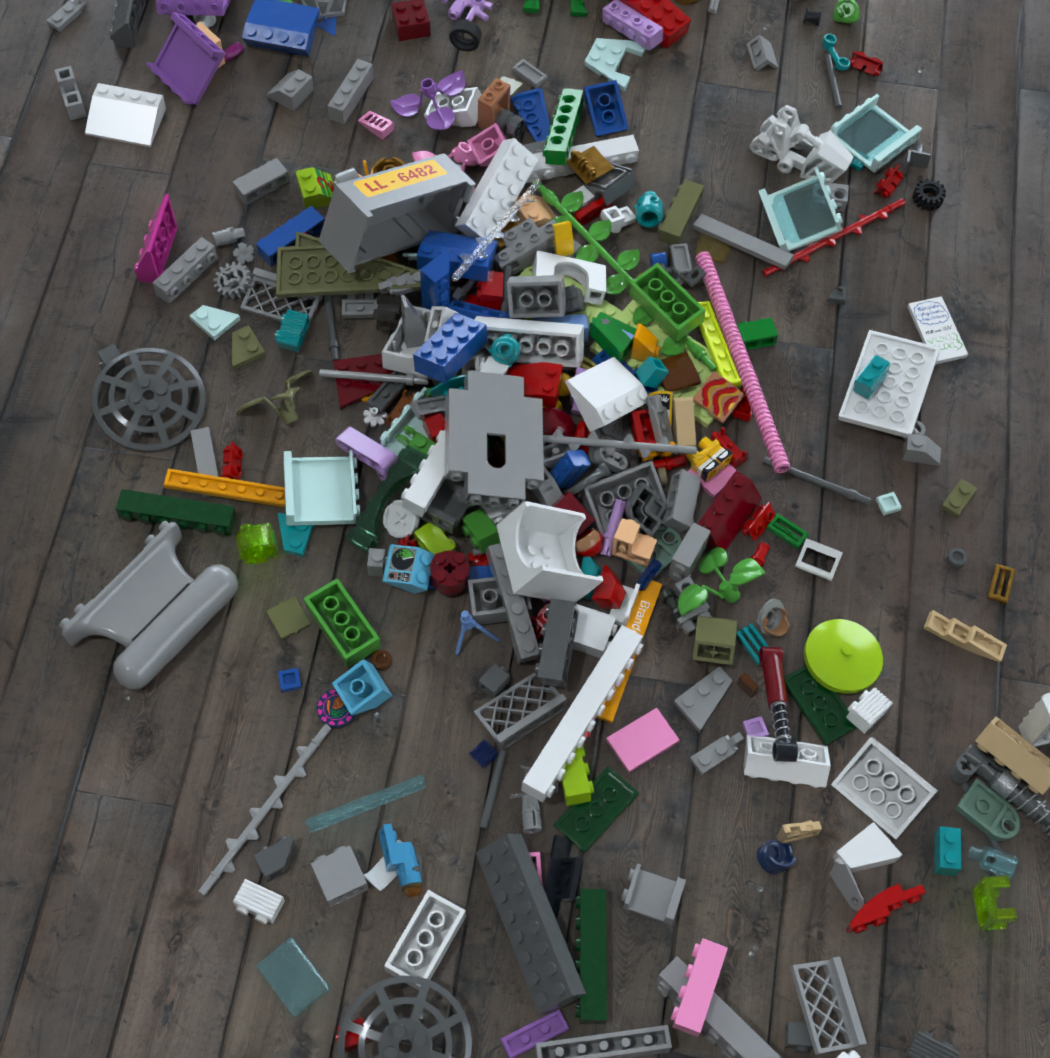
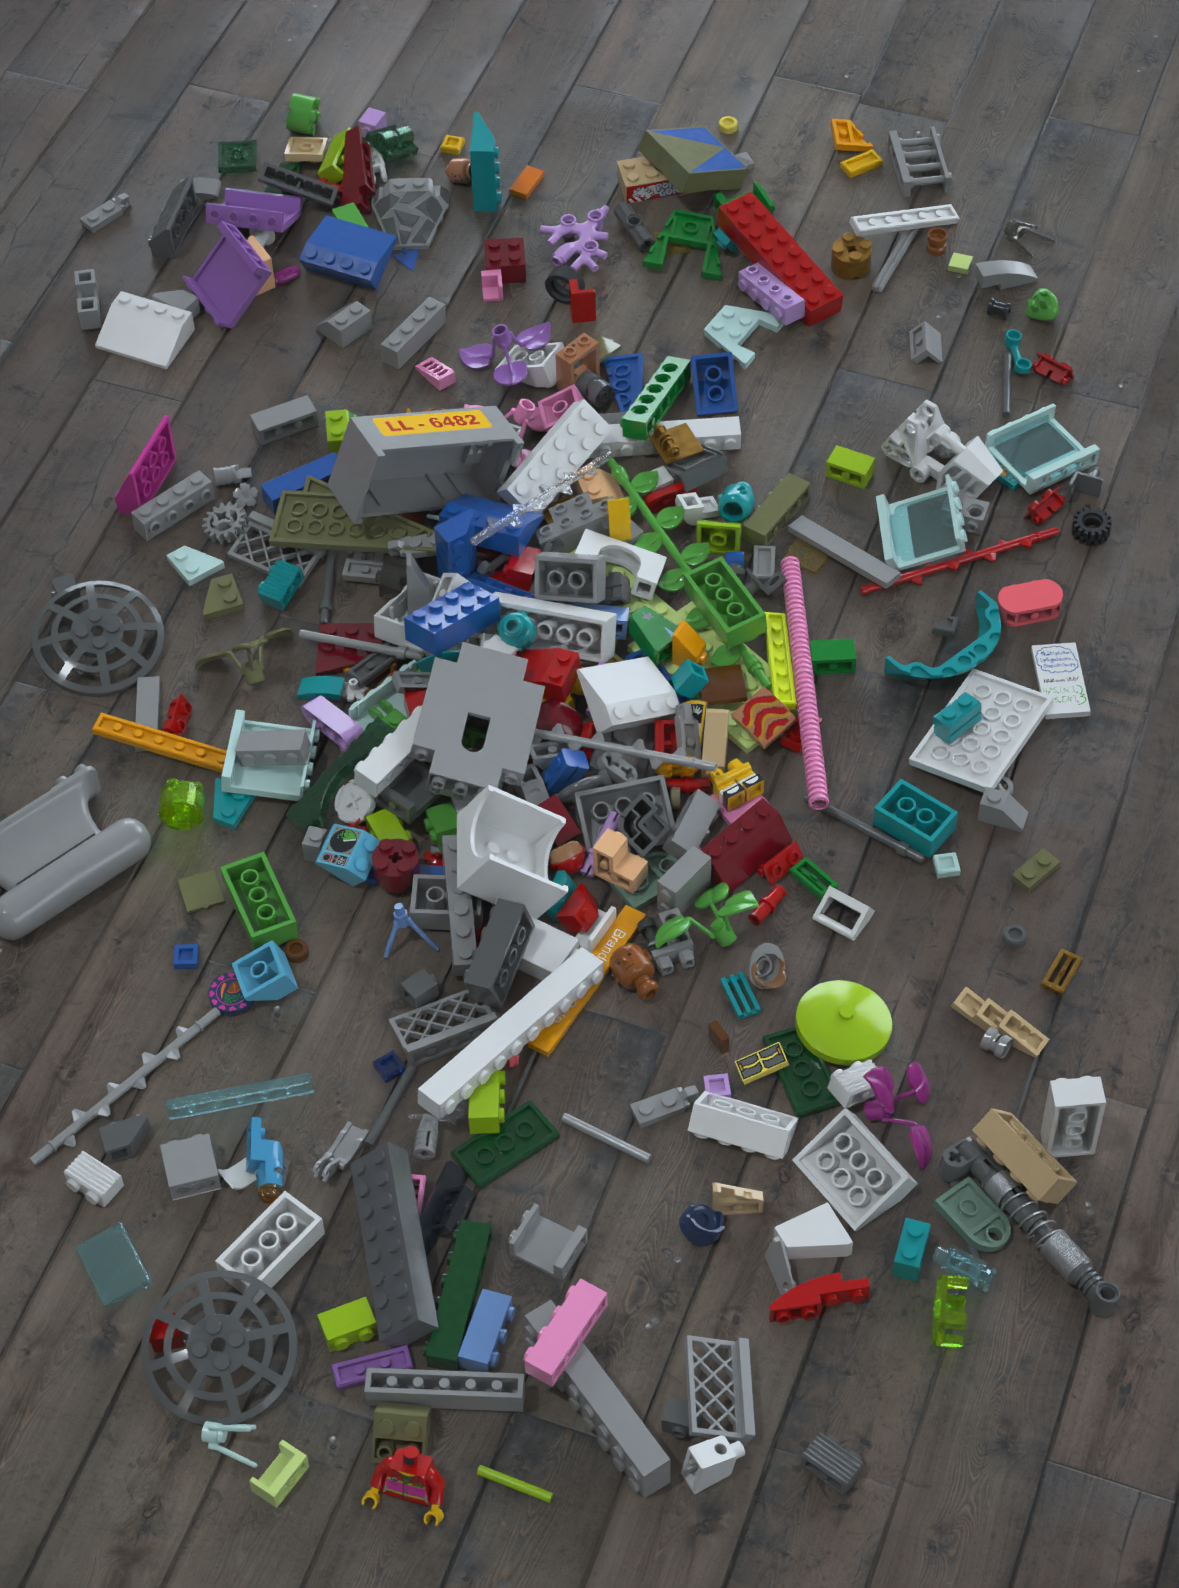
camera: 15 degrees right, 10 degrees down
(148, 84) = (179, 299): none -> light grey slope
(184, 512) = (111, 763): dark green brick -> none
(323, 482) = (273, 748): none -> light grey brick
(347, 417) = (326, 686): none -> teal slope
(405, 42) = (492, 285): none -> bright pink panel
(462, 837) = (341, 1152): none -> light grey arm
(482, 50) = (582, 303): none -> red panel
(506, 1000) = (348, 1324): none -> lime brick
(529, 73) = (634, 336): light grey tile -> none
(623, 986) = (486, 1332): none -> medium blue brick
(642, 740) = (579, 1079): bright pink tile -> none
(644, 239) = (720, 535): none -> lime slope
(649, 573) = (631, 900): clear blue piece -> none
(666, 636) = (634, 970): none -> dark orange piece
(677, 790) = (606, 1138): none -> light grey bar
(702, 698) = (661, 1045): light grey wing -> none
(714, 640) = (689, 980): olive slope -> none
(730, 167) = (850, 467): none -> lime brick
(738, 456) = (773, 787): red hinge -> none
(771, 660) = (744, 1055): piece -> none
(796, 699) = (762, 1063): none -> tile
(857, 467) = (915, 818): none -> teal brick
(871, 314) = (964, 660): none -> teal windscreen
(898, 266) = (1029, 602): none -> coral brick
(899, 725) = (882, 1086): none -> magenta plant
(967, 655) = (996, 1042): none -> light grey wheel

